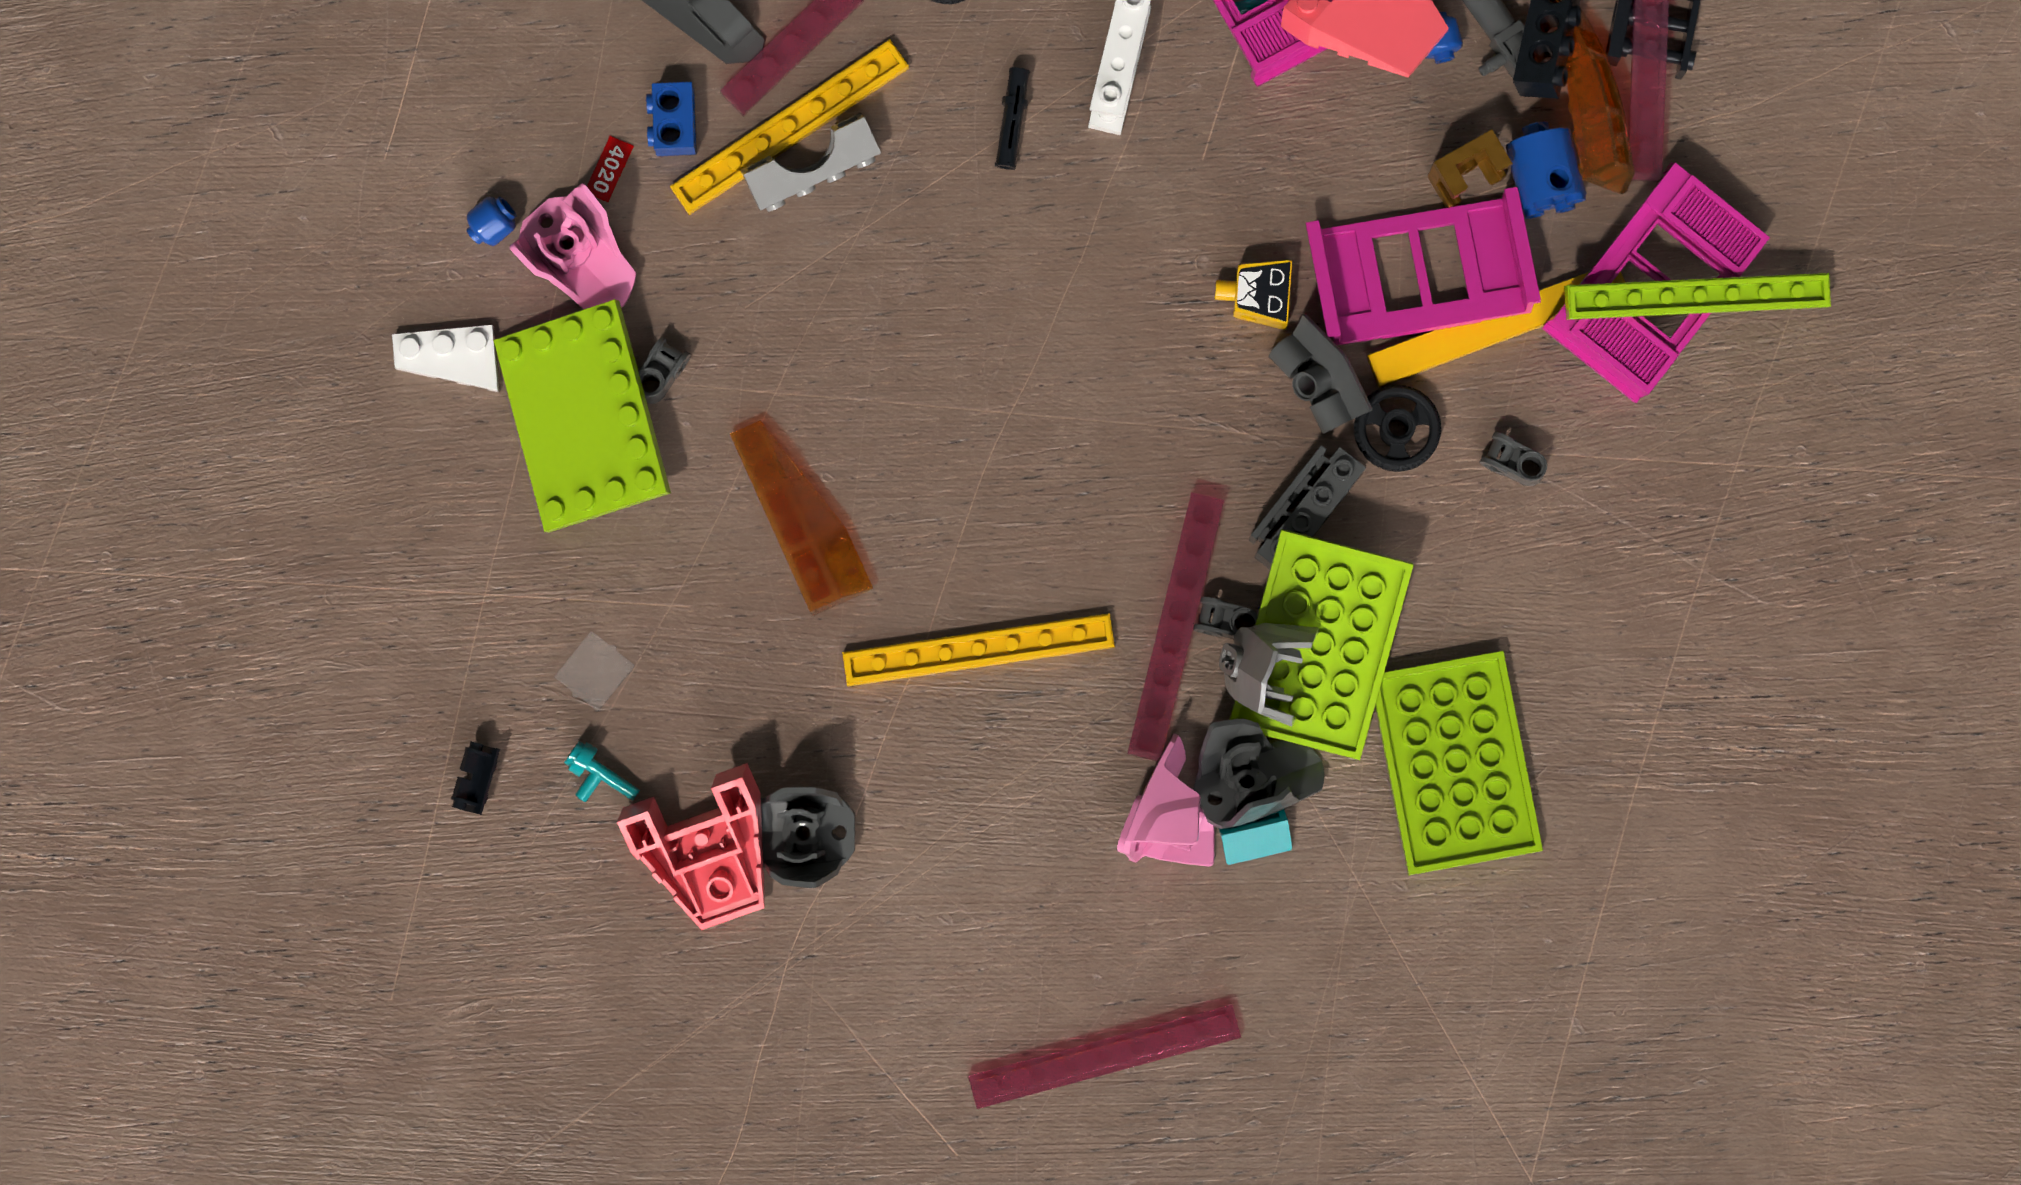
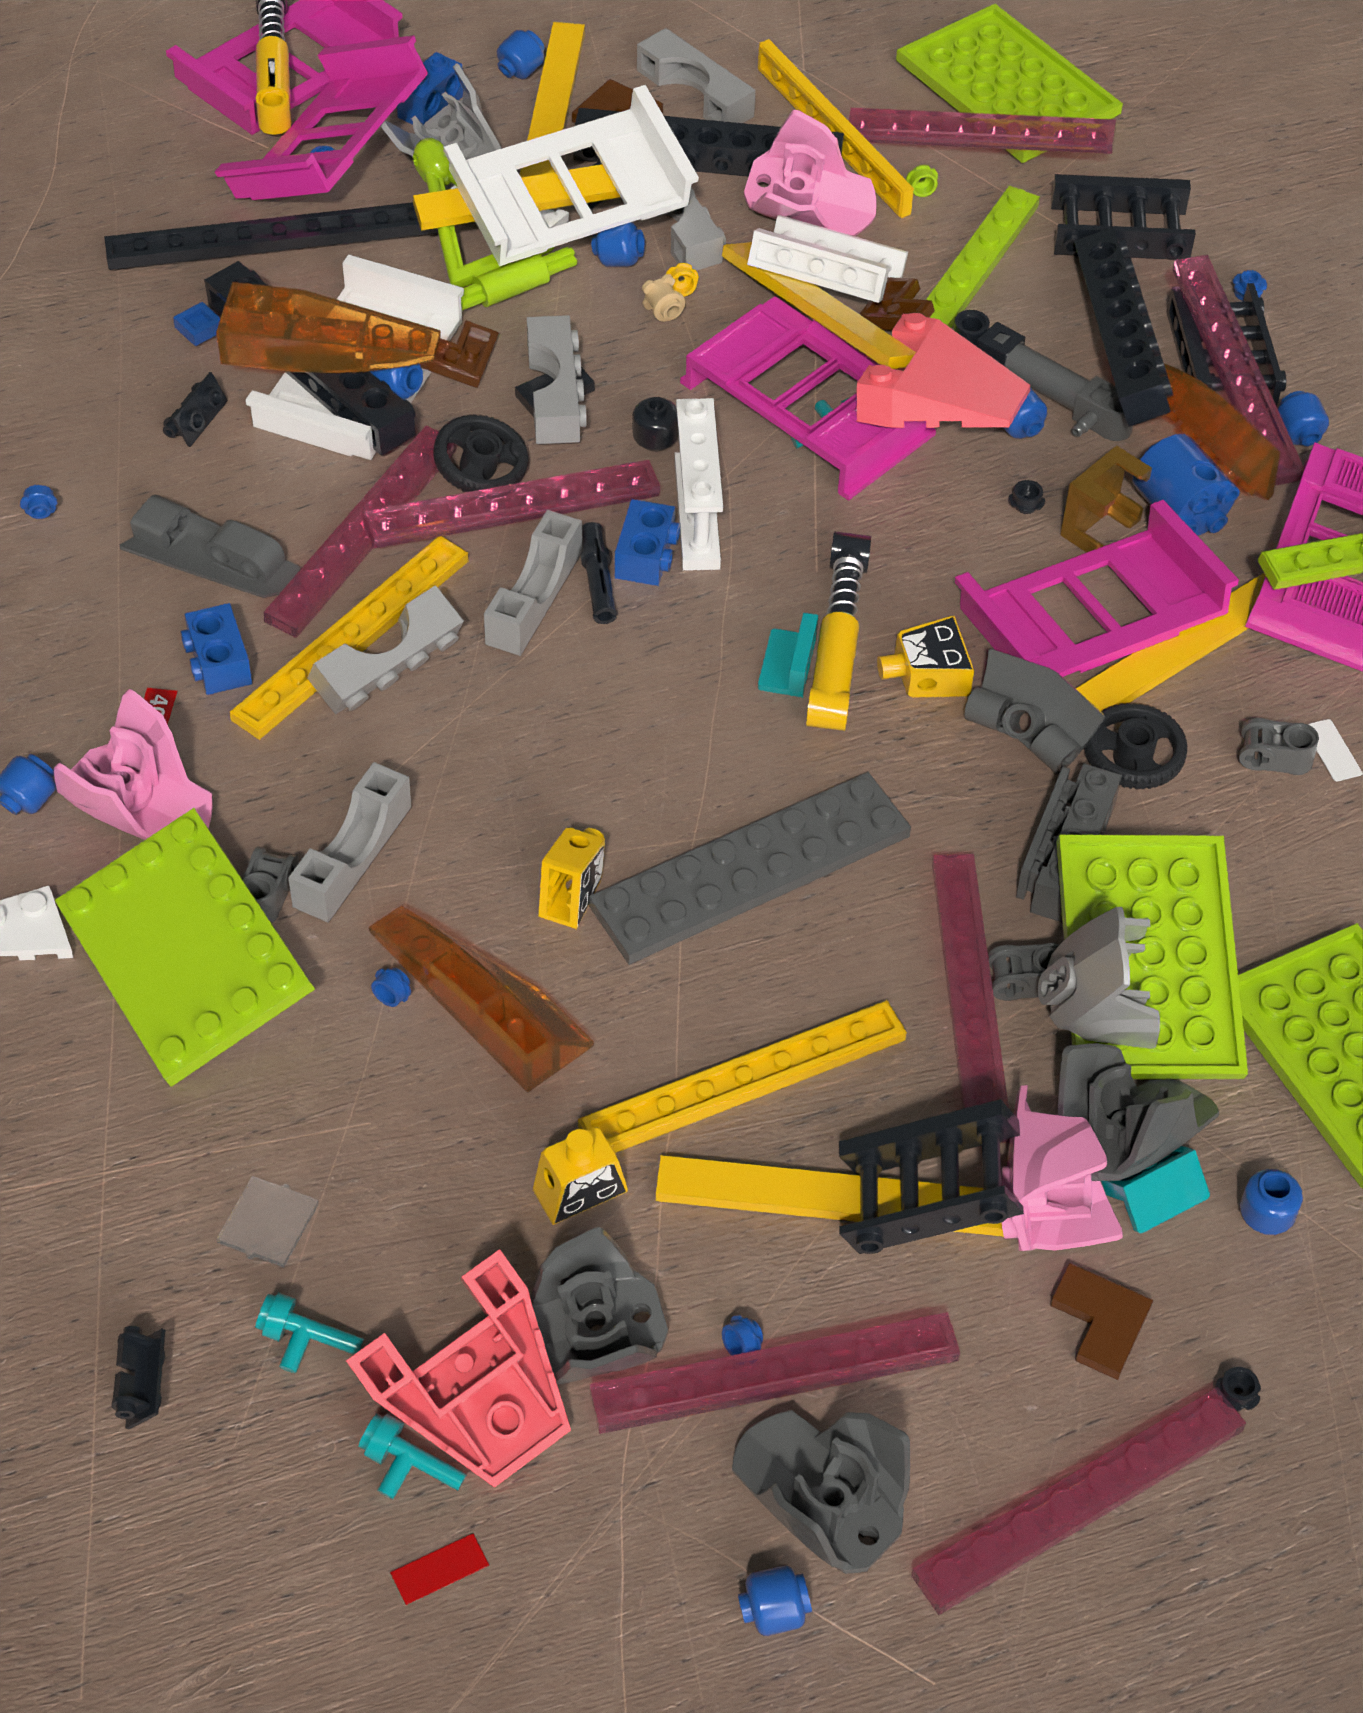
camera: 20 degrees left, 30 degrees down
(632, 876) = (383, 1438): none -> teal piece
(649, 977) = (439, 1569): none -> red sticker
(733, 494) = (391, 986): none -> blue plate
(749, 340) = (375, 811): none -> light grey arch
(828, 707) = (577, 1175): none -> yellow torso
(865, 1073) = (775, 1600): none -> blue head
(893, 440) = (577, 858): none -> yellow torso
(907, 868) = (742, 1335): none -> blue plate
(908, 983) = (852, 1464): none -> dark grey piece
(926, 903) = (773, 1372): none -> clear pink plate
(943, 136) = (551, 556): none -> light grey arch
(959, 26) = (510, 503): none -> clear pink plate
(1007, 768) = (786, 1190): none -> yellow tile
(1046, 455) = (748, 867): none -> dark grey plate
(1055, 95) = (646, 542): none -> blue brick
(1072, 761) = (921, 1140): none -> black fence
(1144, 253) = (789, 658): none -> teal panel
(1182, 924) = (1111, 1310): none -> reddish brown tile
(1193, 242) = (838, 634): none -> yellow piece
(1256, 1006) = (1246, 1381): none -> black plate
(1338, 866) = (1271, 1201): none -> blue head
(1410, 124) = (1027, 497): none -> black plate
(1564, 469) = (1335, 752): none -> white sticker
(1689, 112) = (1303, 417): none -> blue head

